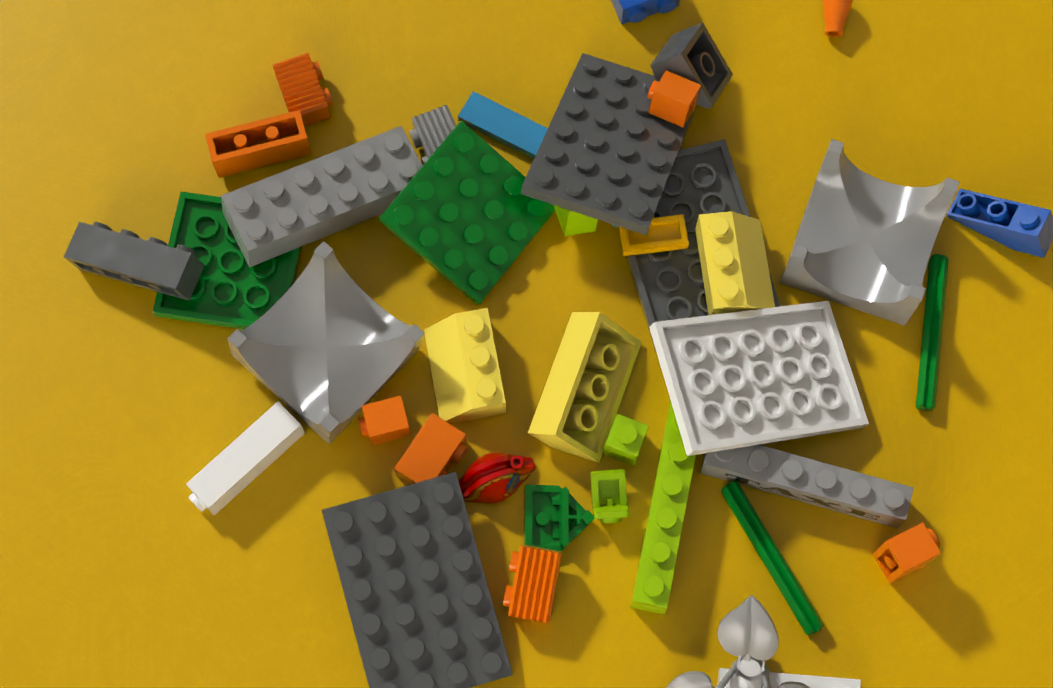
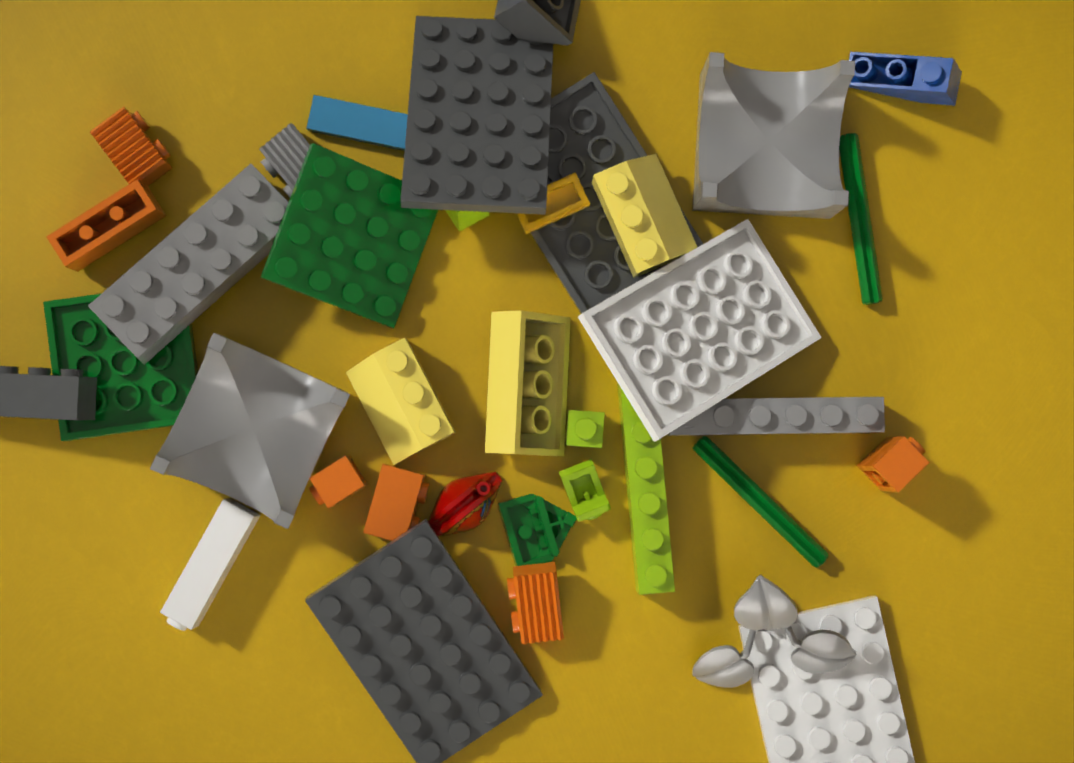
camera: 25 degrees left, 15 degrees up
(673, 98) = (529, 47): orange brick -> none

